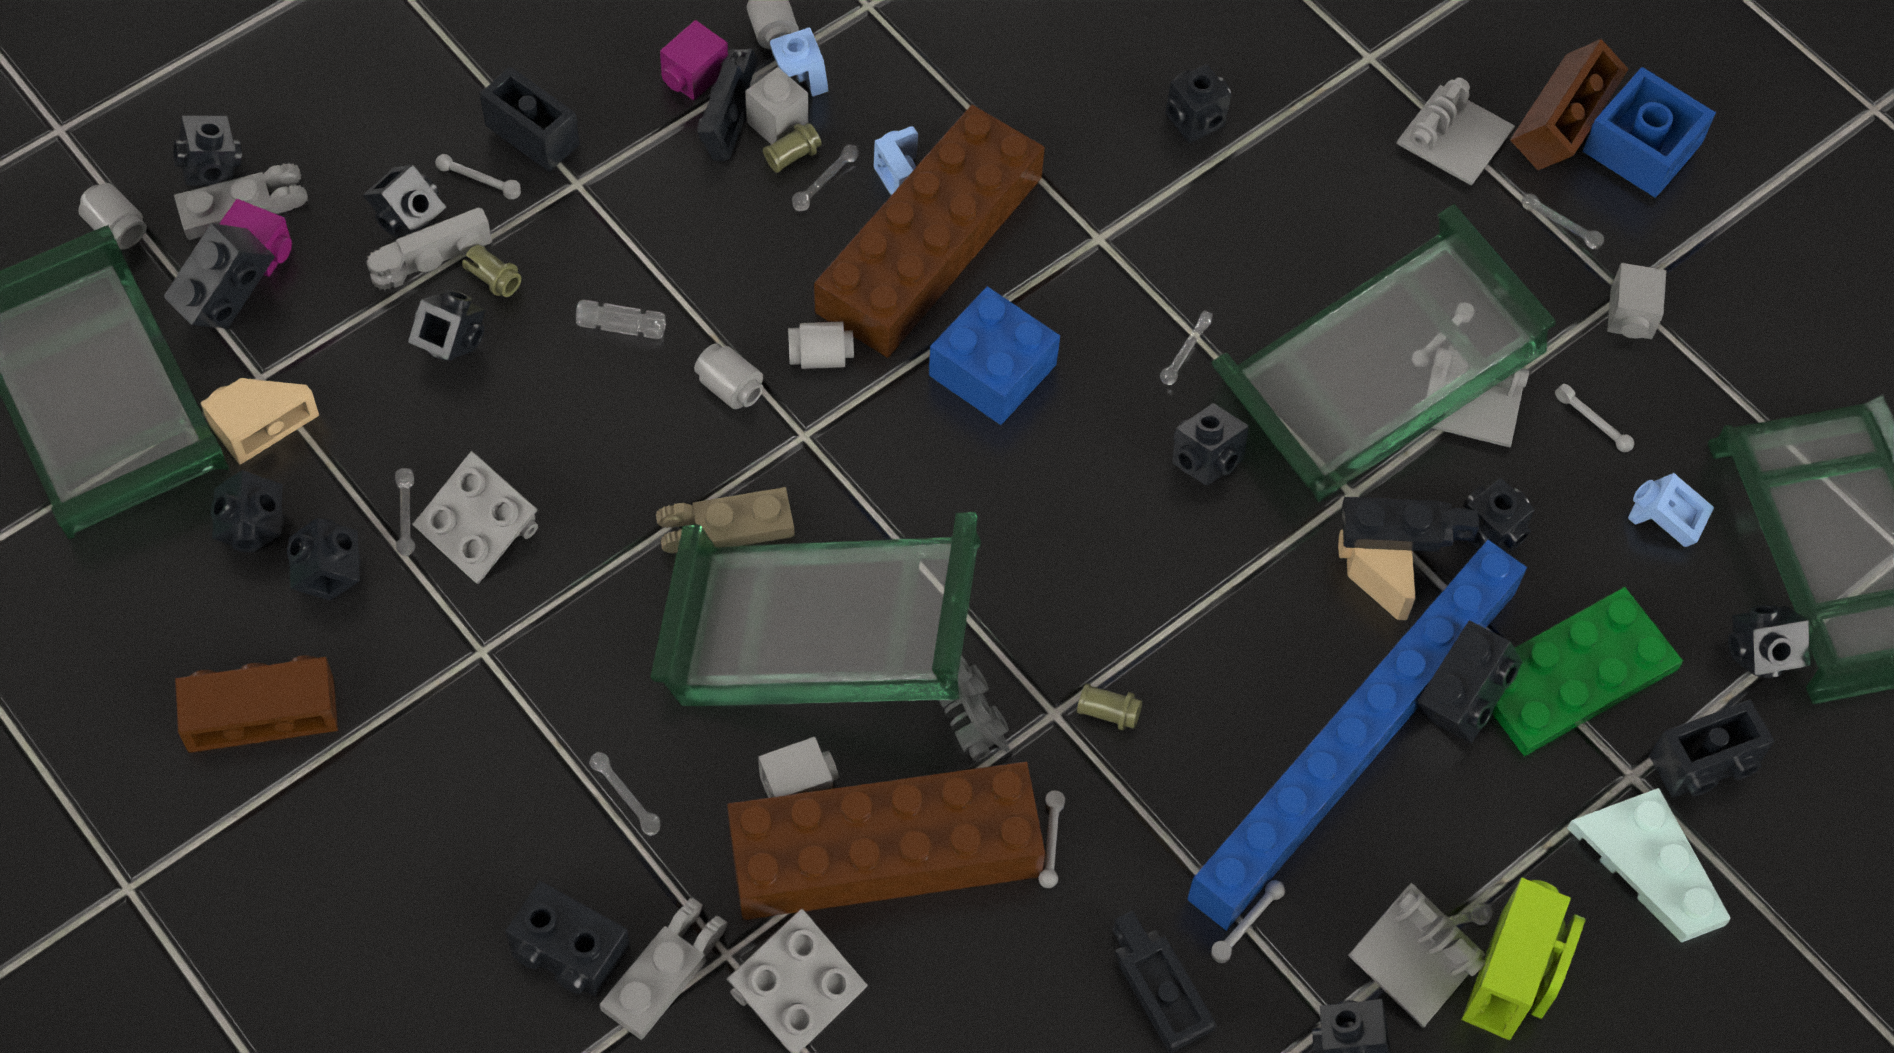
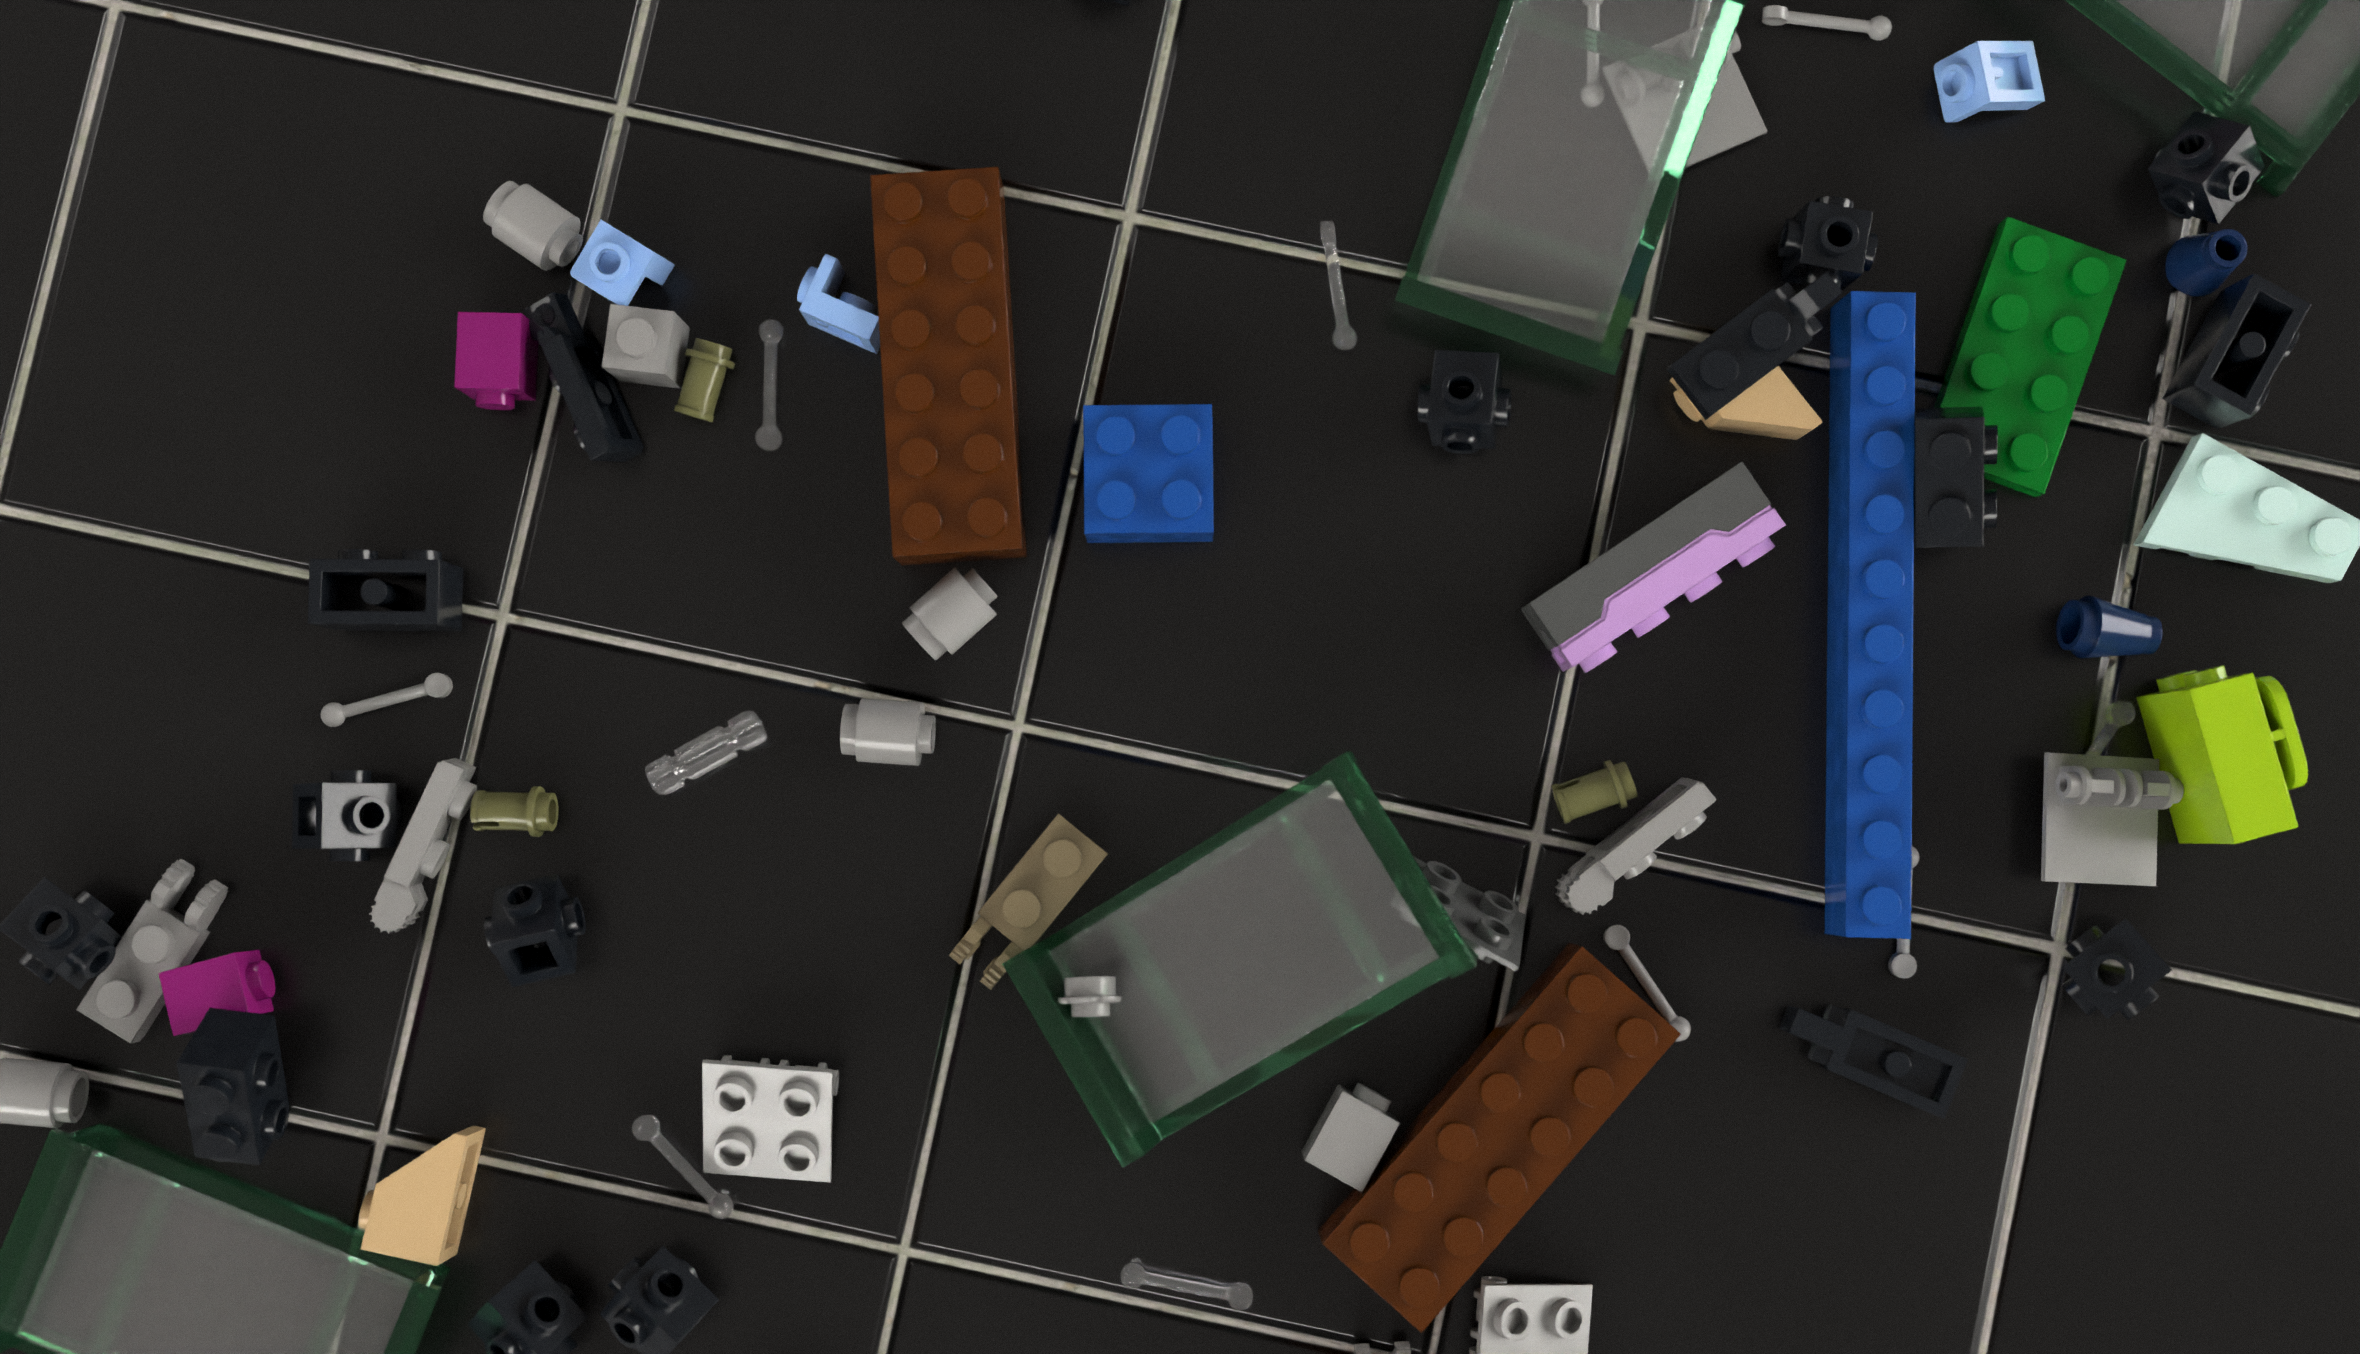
camera: 35 degrees left, 25 degrees up
(717, 579) = (1090, 995): none -> light grey plate
(1106, 748) = (1631, 846): none -> light grey hinge
(1248, 612) = (1654, 567): none -> piece
(1508, 851) = (2106, 629): none -> dark blue cone
(1731, 687) = (2204, 261): none -> dark blue cone

